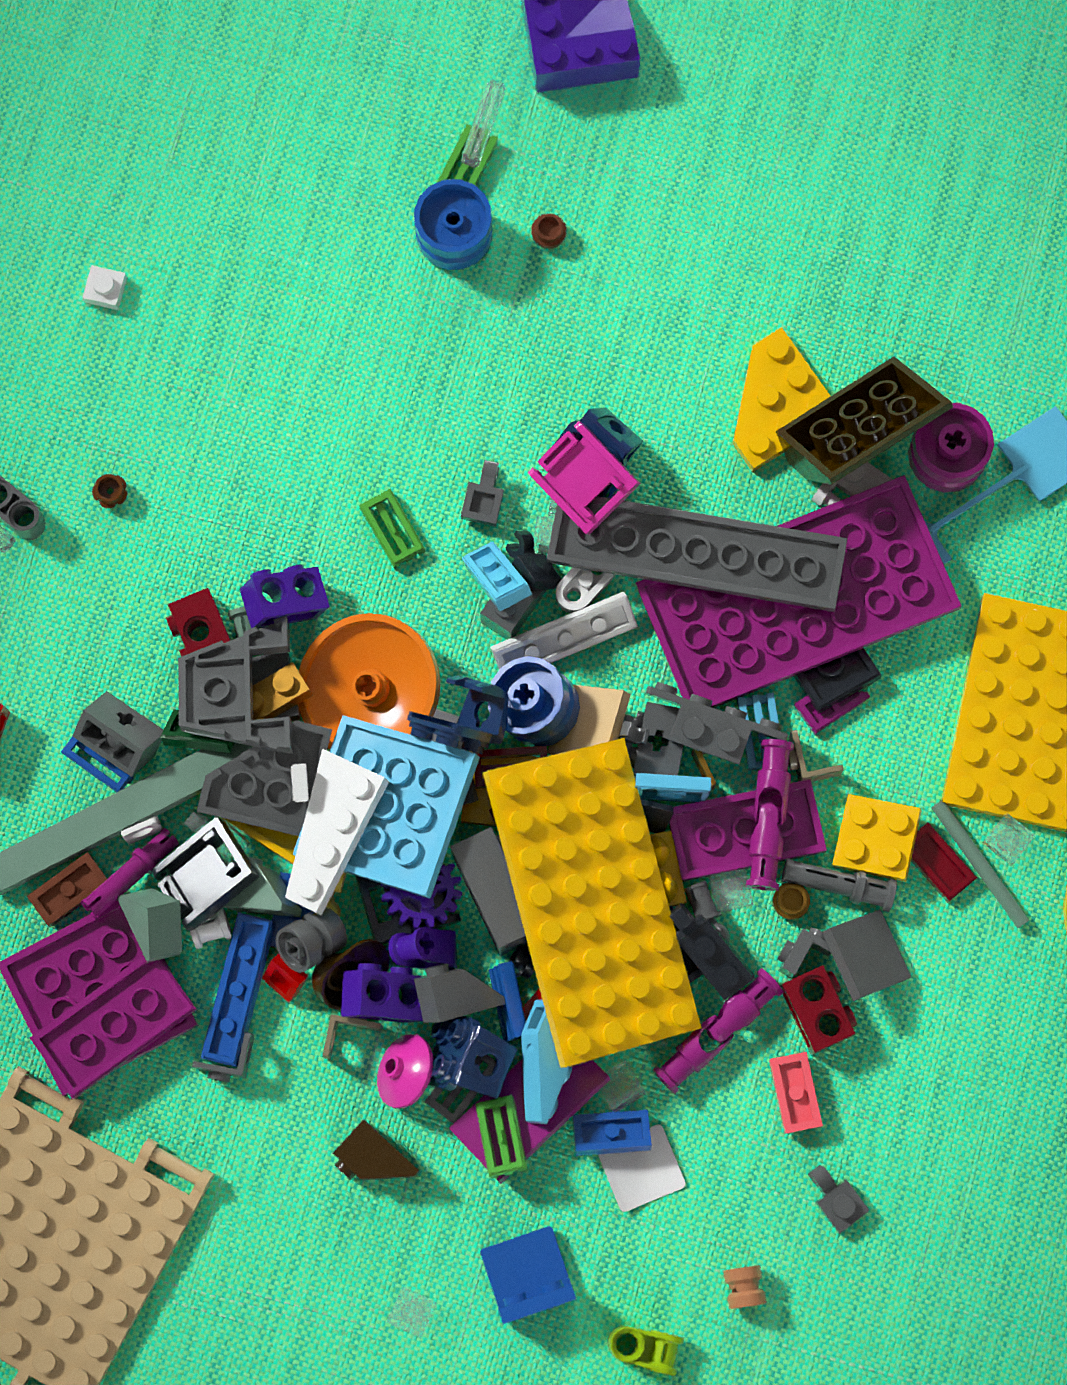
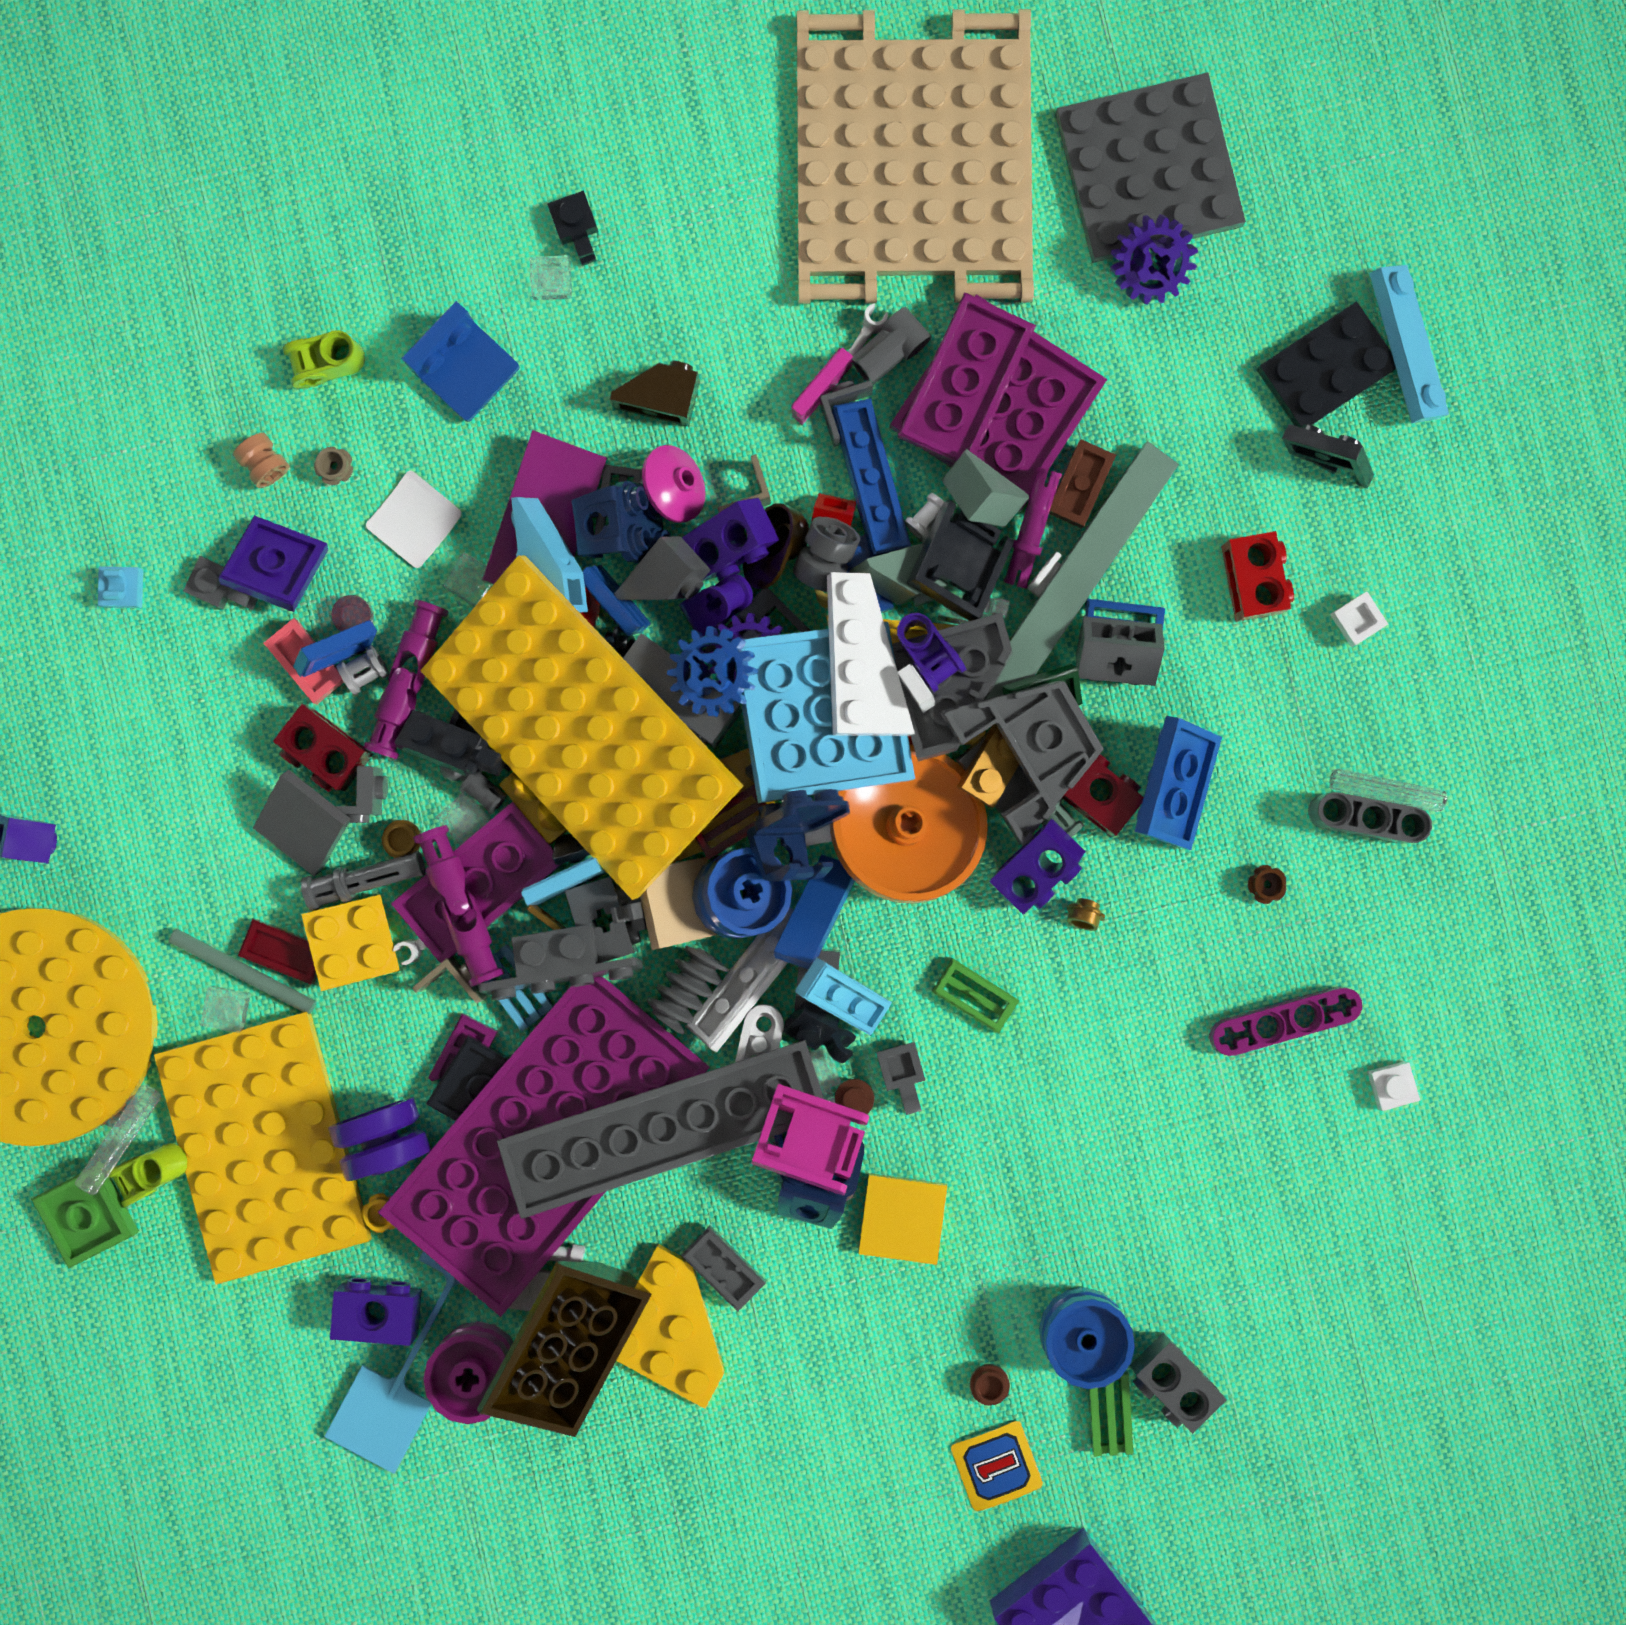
camera: 150 degrees right, 10 degrees up
(134, 603) = (1178, 783): none -> blue plate
(149, 1093) = (899, 339): none -> dark grey piece
(158, 383) = (1286, 1024): none -> magenta beam
(171, 1118) = (869, 327): none -> white hand
(235, 1089) = (822, 383): none -> dark pink tile
(268, 543) = (1085, 914): none -> pearl gold plate
(273, 805) = (933, 657): none -> dark purple piece
(365, 1353) = (575, 223): none -> black plate
(397, 157) = (1181, 1379): none -> dark grey brick
(452, 862) = (700, 681): none -> blue gear
(483, 123) = (1116, 1462): clear axle -> none
(484, 653) = (814, 916): none -> blue tile
(507, 1168) = (537, 478): bright green tile -> none
(532, 500) = (855, 1095): none -> copper plate
(546, 389) = (902, 1218): none -> yellow tile
(577, 169) = (997, 1466): none -> sticker
(611, 1132) = (454, 533): blue plate -> none
(619, 654) = (686, 987): none -> dark grey piece
(681, 1240) = (324, 461): none -> dark tan plate
(709, 424) = (723, 1268): none -> dark grey plate
(735, 1112) = (350, 612): none -> clear pink tile
(750, 1058) = (369, 659): none -> light grey bush
(762, 1083) = (334, 648): none -> blue tile
(779, 1190) = (273, 563): none -> dark purple tile
(824, 808) = (415, 946): none -> white hand
(922, 1245) = (120, 587): none -> medium azure tile
(931, 663) = (381, 1143): none -> dark purple wheel
(972, 613) = (371, 1216): none -> yellow plate
(999, 515) = (355, 1323): none -> dark purple brick

